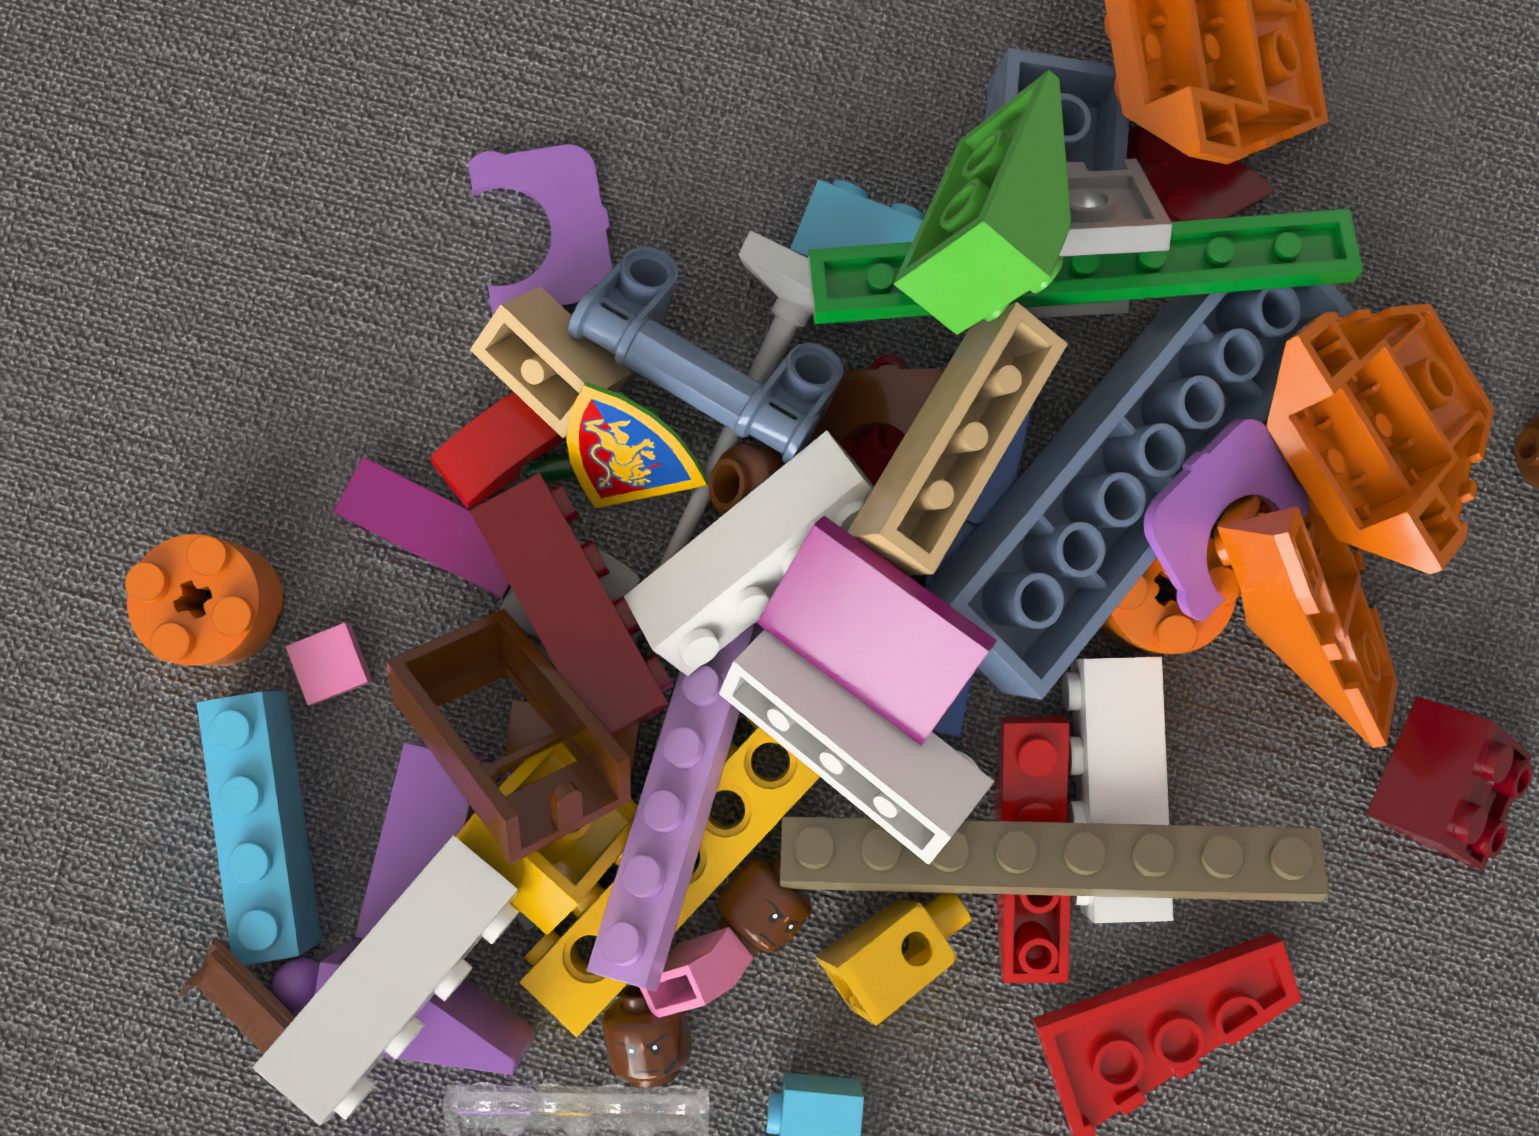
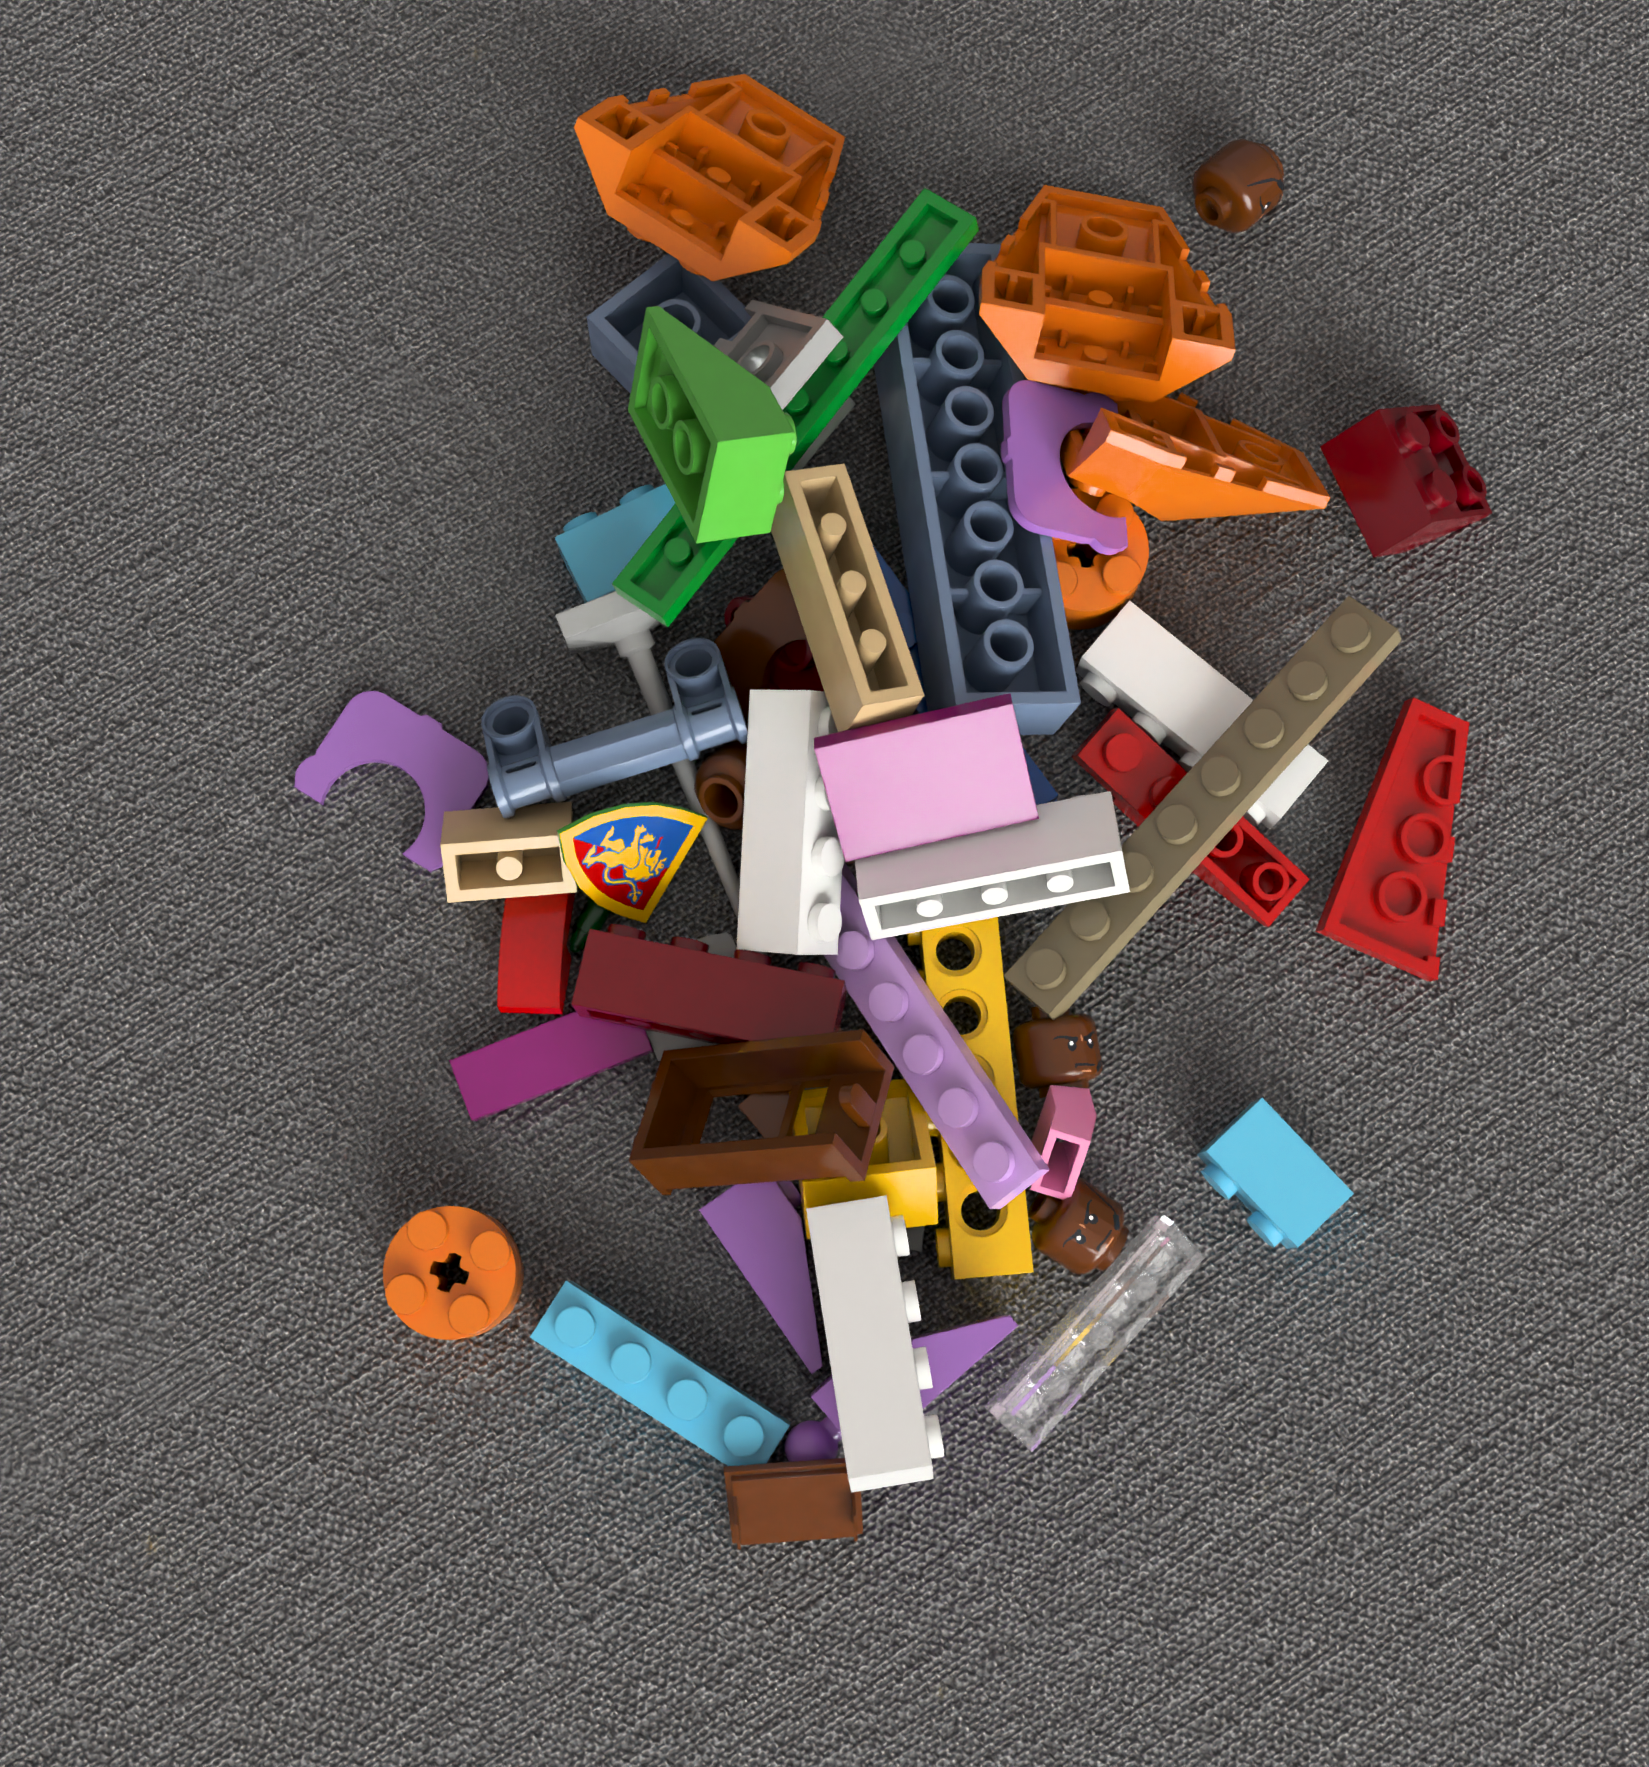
camera: 45 degrees left, 5 degrees down
(329, 663) = (583, 1226): bright pink tile -> none
(869, 960) = (1176, 988): yellow torso -> none
(1194, 186) = (811, 279): dark red wing -> none

